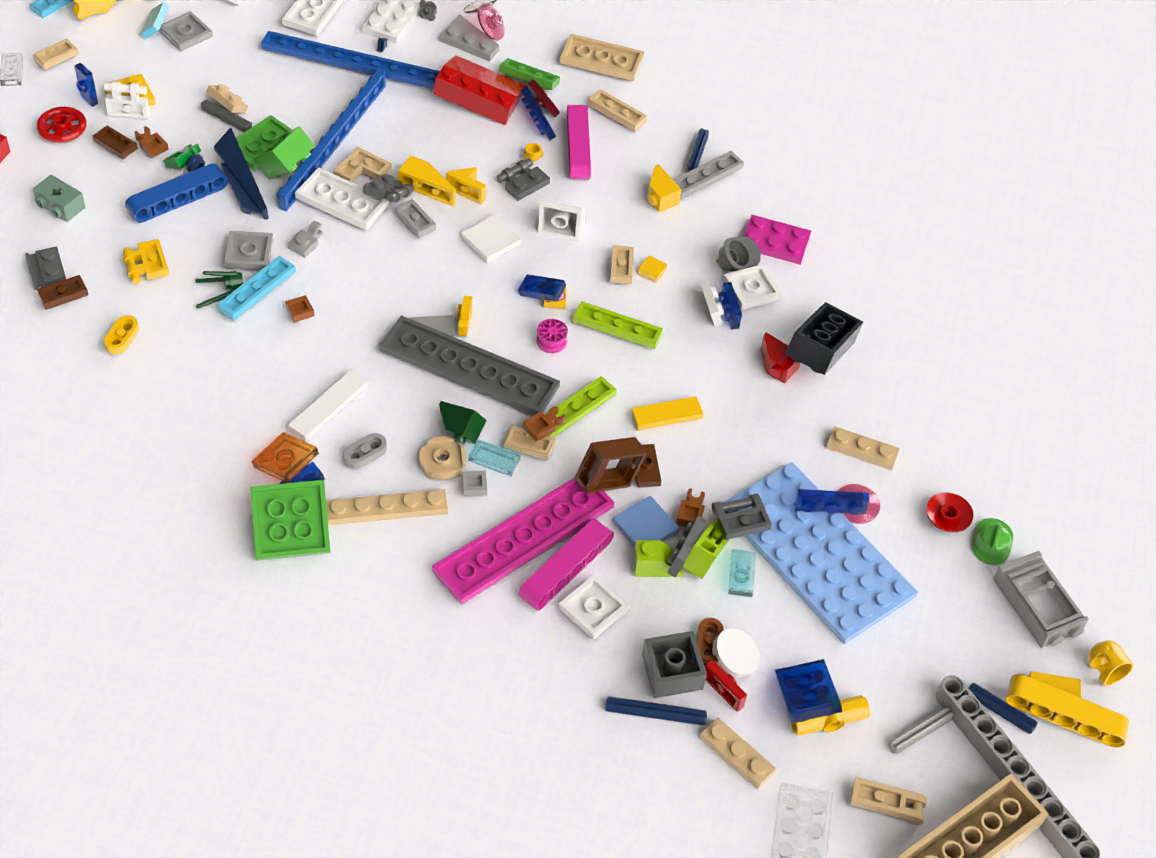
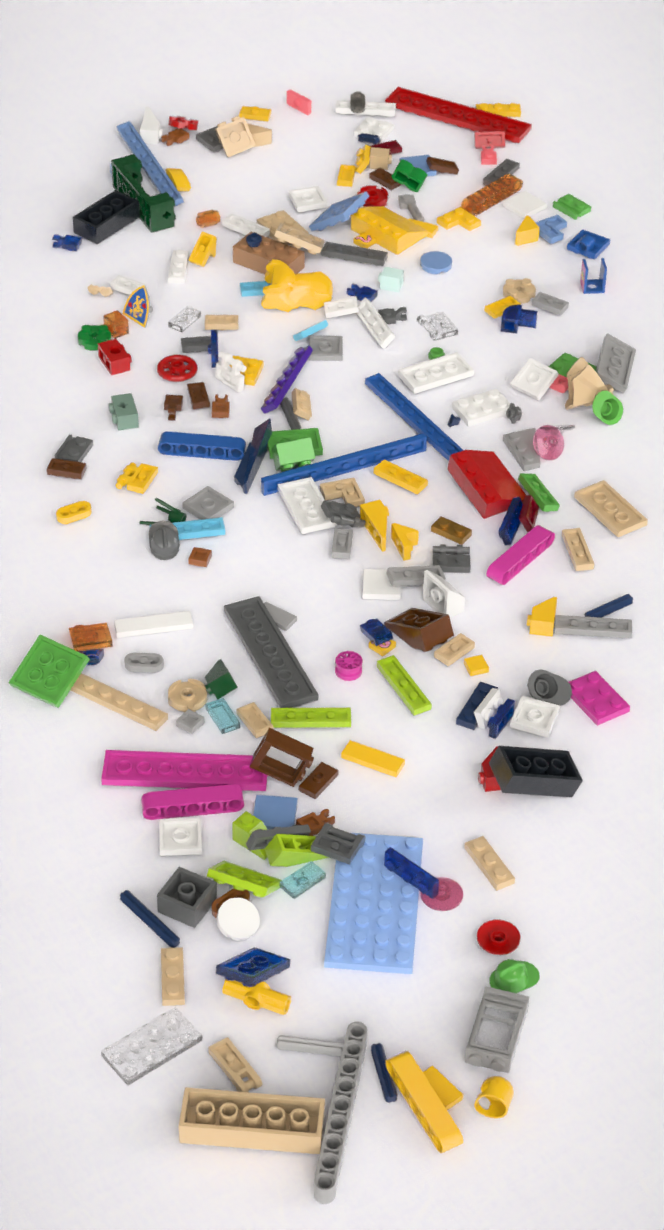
camera: 45 degrees right, 10 degrees down
(56, 88) = (195, 344): none -> dark grey plate
(100, 163) = (172, 404): none -> reddish brown plate
(179, 158) = (228, 426): green plate -> none
(186, 81) = (287, 378): none -> dark purple plate
(194, 162) = (234, 432): dark blue plate -> none
(247, 311) = (164, 540): none -> dark grey piece
(305, 242) = (253, 520): light grey plate -> none
(395, 123) = (400, 476): none -> yellow plate
(464, 311) = (304, 620): yellow plate -> none
(493, 151) = (451, 530): none -> pearl gold plate
(516, 212) = (411, 575): none -> light grey plate
(533, 151) = (479, 545): yellow plate -> none
(542, 425) = (269, 710): dark orange plate -> none
(573, 260) = (421, 628): none -> reddish brown slope
(694, 306) = (467, 717): none -> dark blue plate
(700, 608) = (244, 878): none -> lime plate
(725, 685) = (209, 932): red plate -> none

